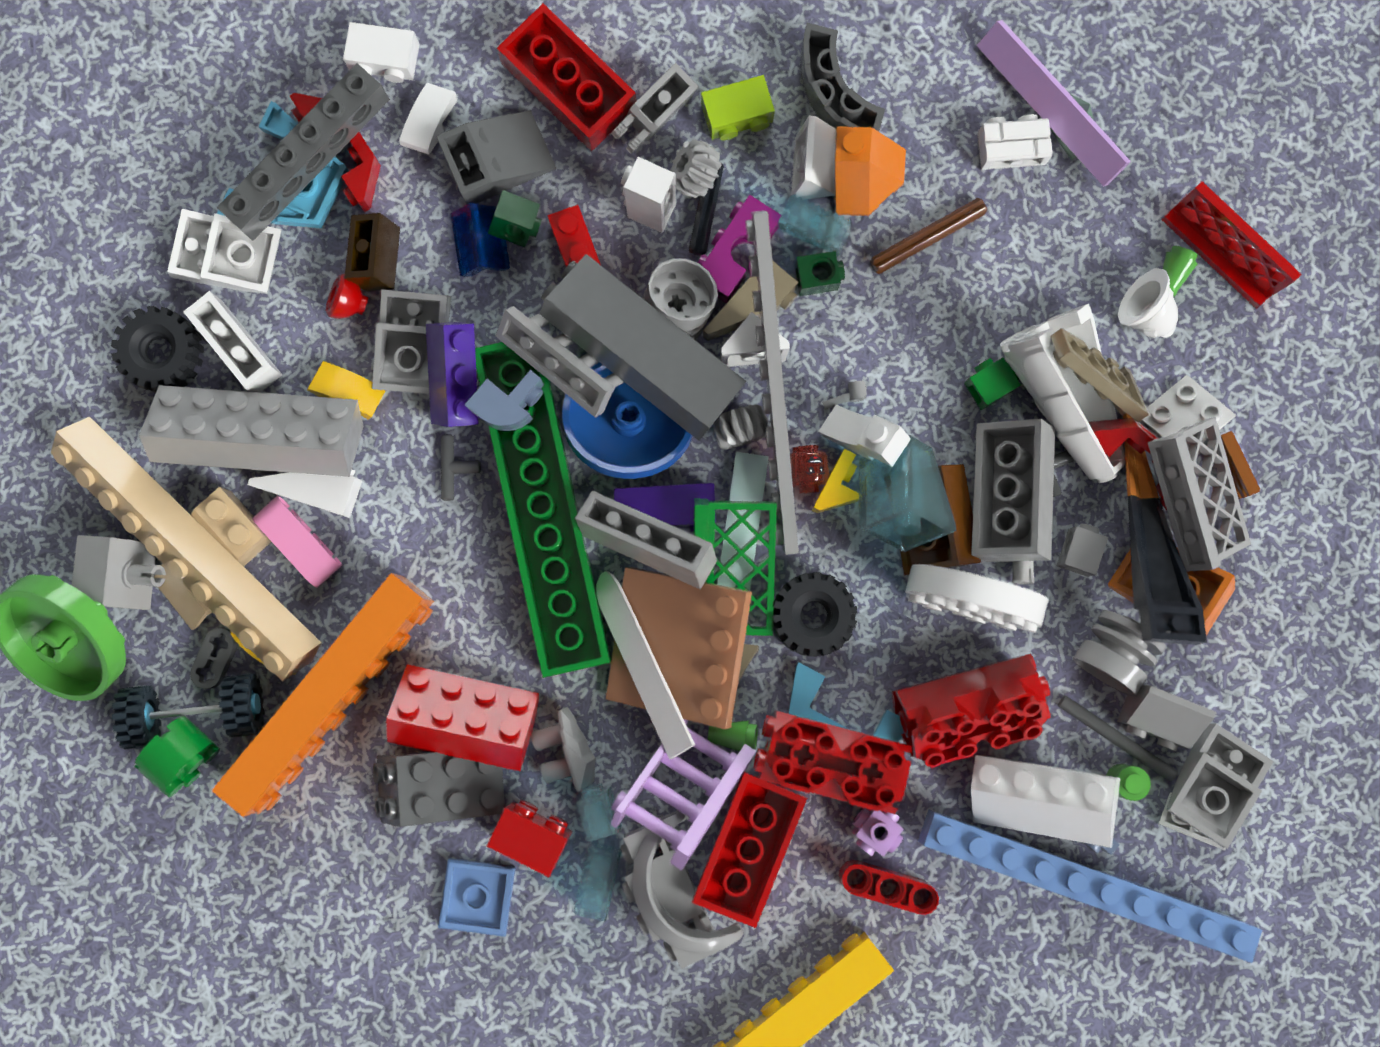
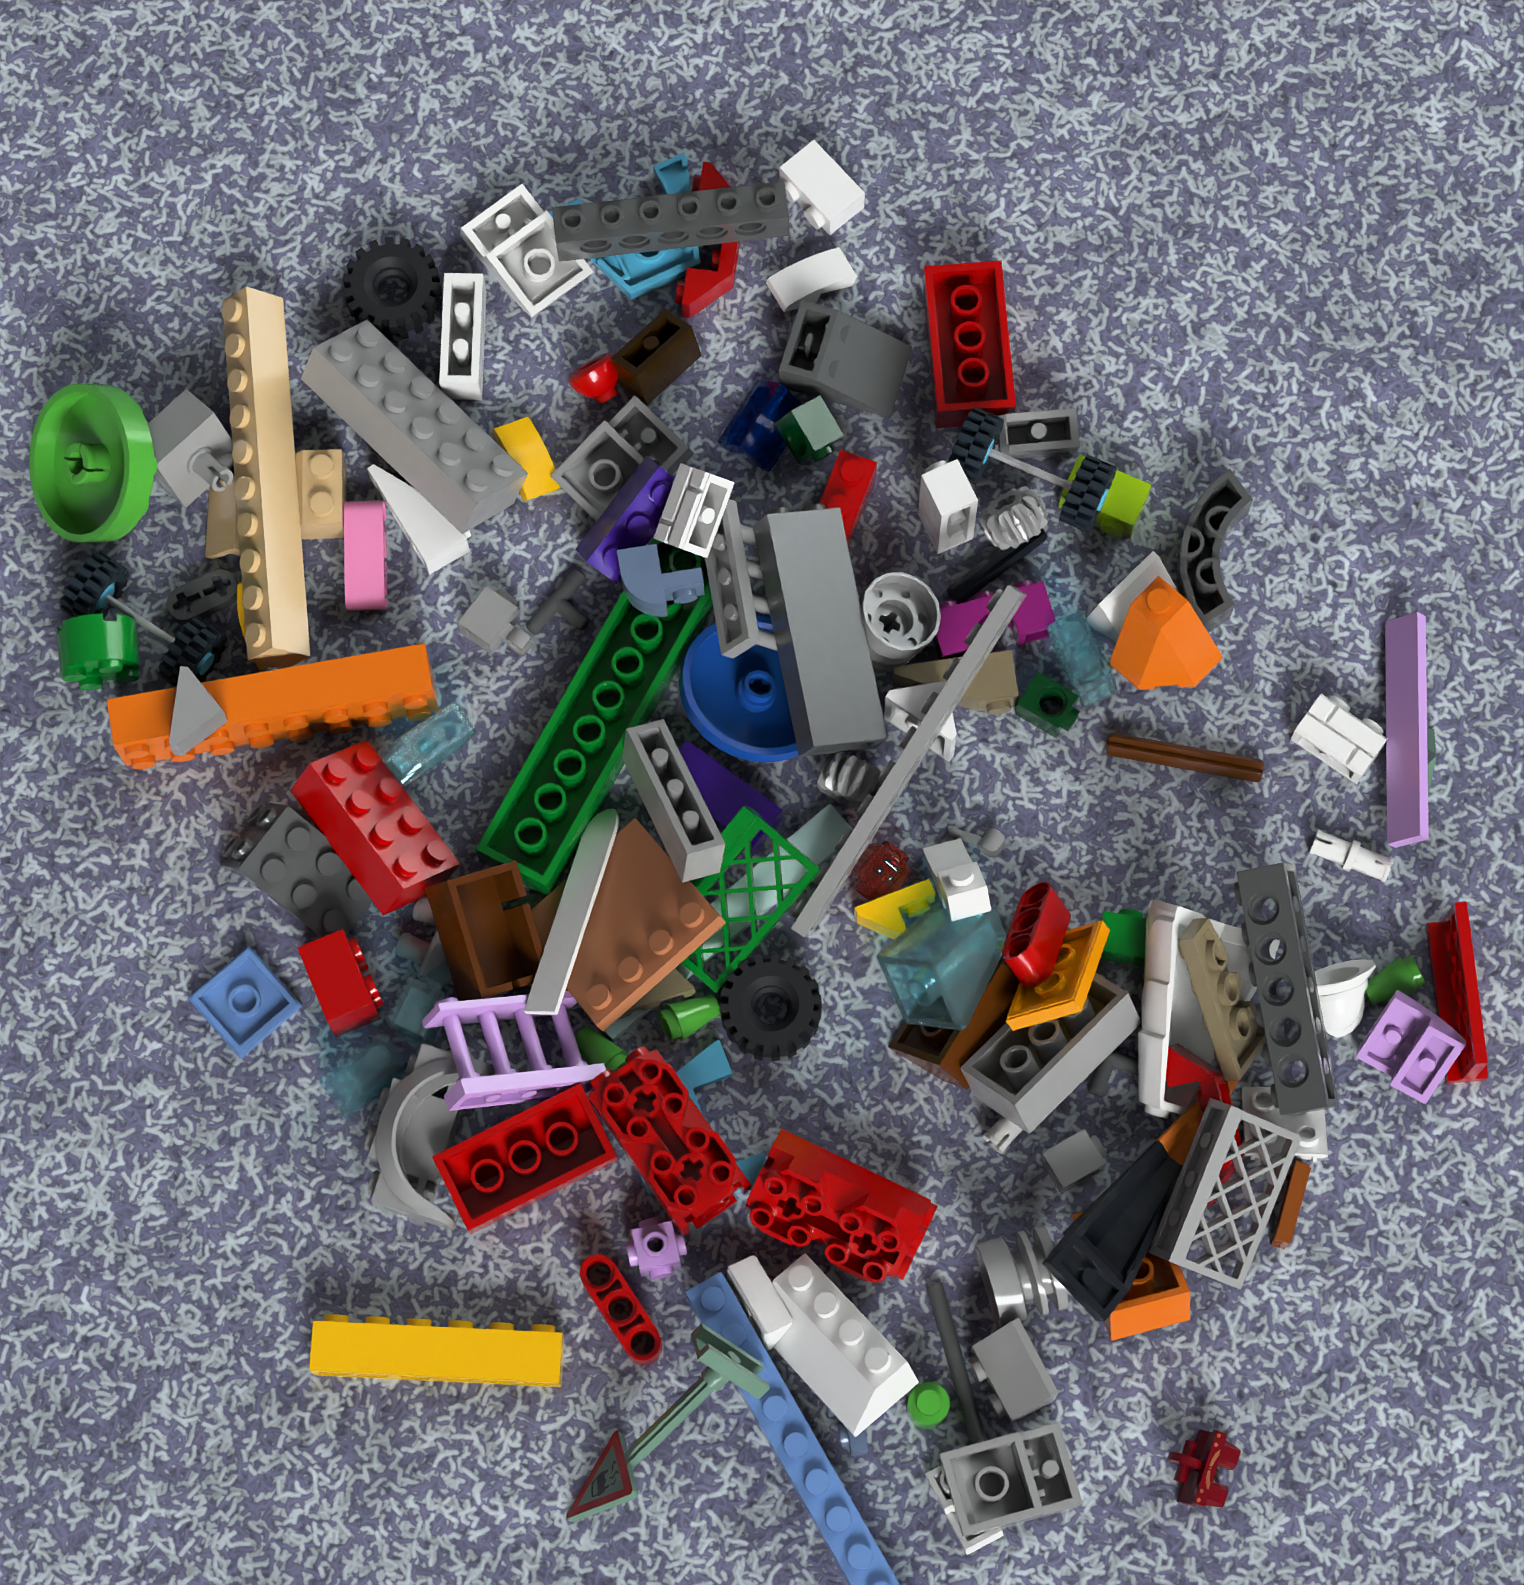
camera: 45 degrees right, 10 degrees down
(279, 753) = (194, 714): none -> light grey slope
(417, 515) = (492, 621): none -> light grey brick
(450, 633) = (428, 743): none -> clear light blue brick
(492, 335) = (693, 510): none -> white brick
(598, 729) = (482, 943): none -> reddish brown piece
(733, 113) = (1086, 493): none -> black axle
(766, 664) = (687, 1016): none -> bright green cone
(944, 428) = (1036, 935): none -> red beam
(970, 808) = (759, 1300): none -> white slope
(975, 1000) = (613, 1477): none -> sand green piece
(976, 597) = (926, 1102): white piece -> none
(983, 444) = (1069, 982): none -> light orange tile
(1083, 212) = (1351, 856): none -> white pin
(1202, 382) = (1303, 1005): none -> dark grey brick
(1227, 303) = (1411, 1047): none -> lavender slope
(1321, 675) = (1198, 1467): none -> dark red hips

